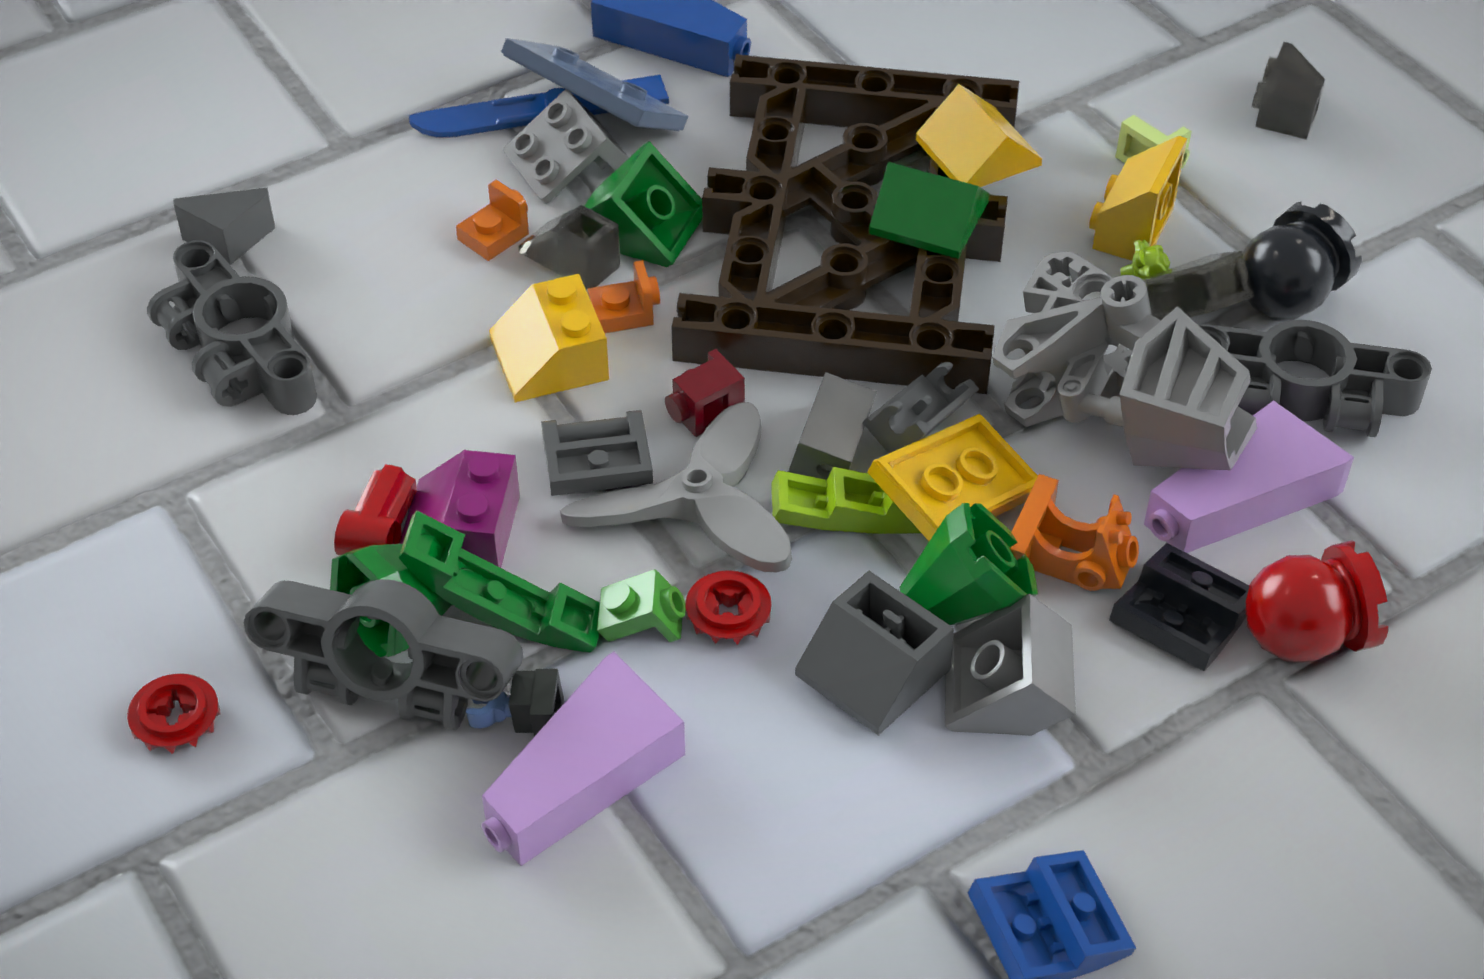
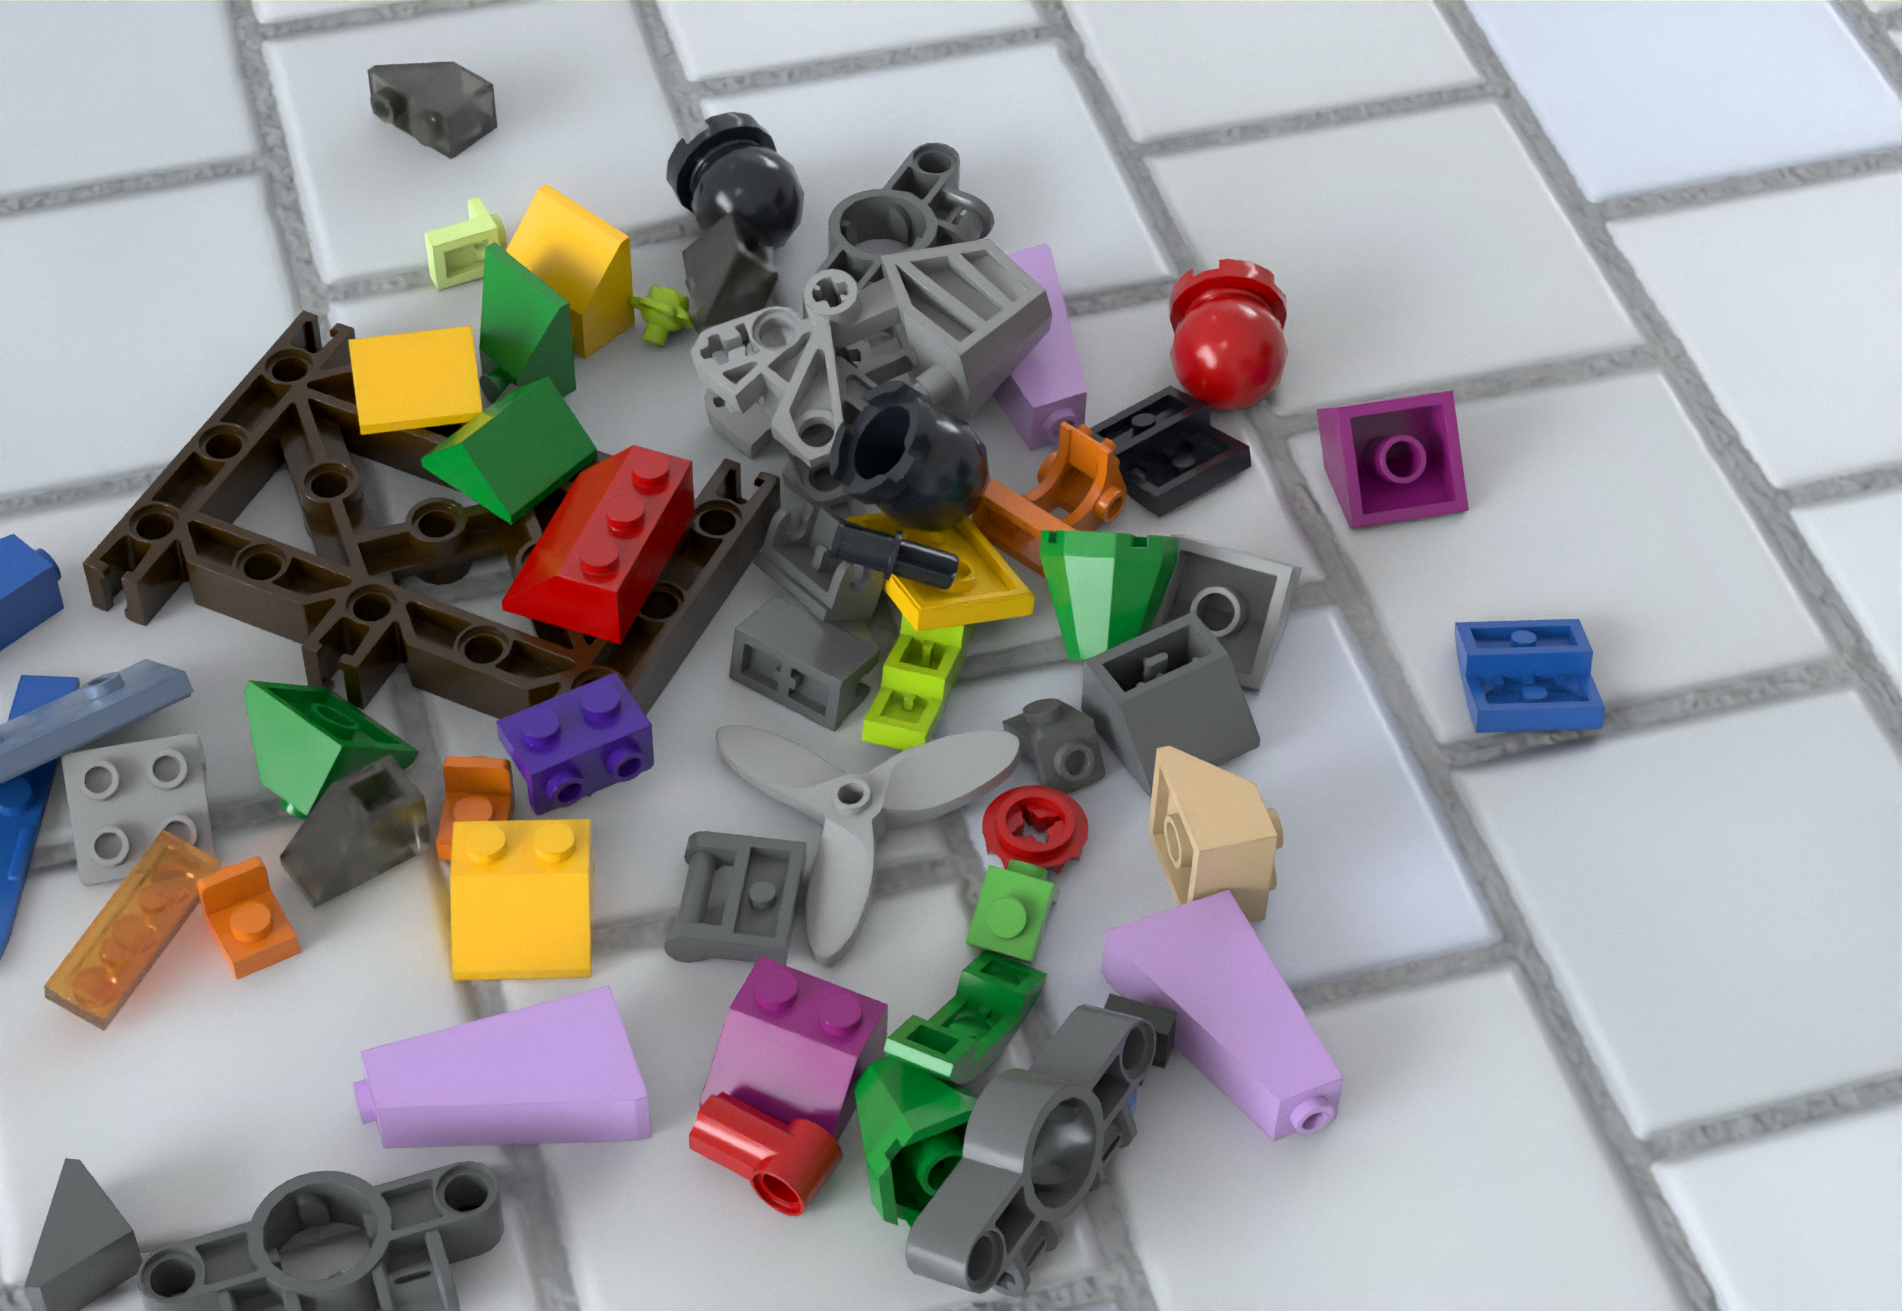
camera: 75 degrees left, 0 degrees up
(404, 379) = (510, 1079): none -> lavender slope
(461, 172) = (131, 931): none -> clear orange plate
(678, 317) = (578, 743): none -> dark purple bracket
(705, 393) = (693, 761): dark red brick -> none
(725, 698) = (1212, 832): none -> tan slope
(808, 597) = (1060, 742): none -> dark grey bracket
(857, 281) = (606, 544): none -> red slope
(913, 424) = (893, 555): none -> black axle
(1016, 418) = (911, 460): none -> black tile
(1059, 193) = (522, 329): none -> green slope
(1257, 762) = (1394, 458): none -> magenta slope

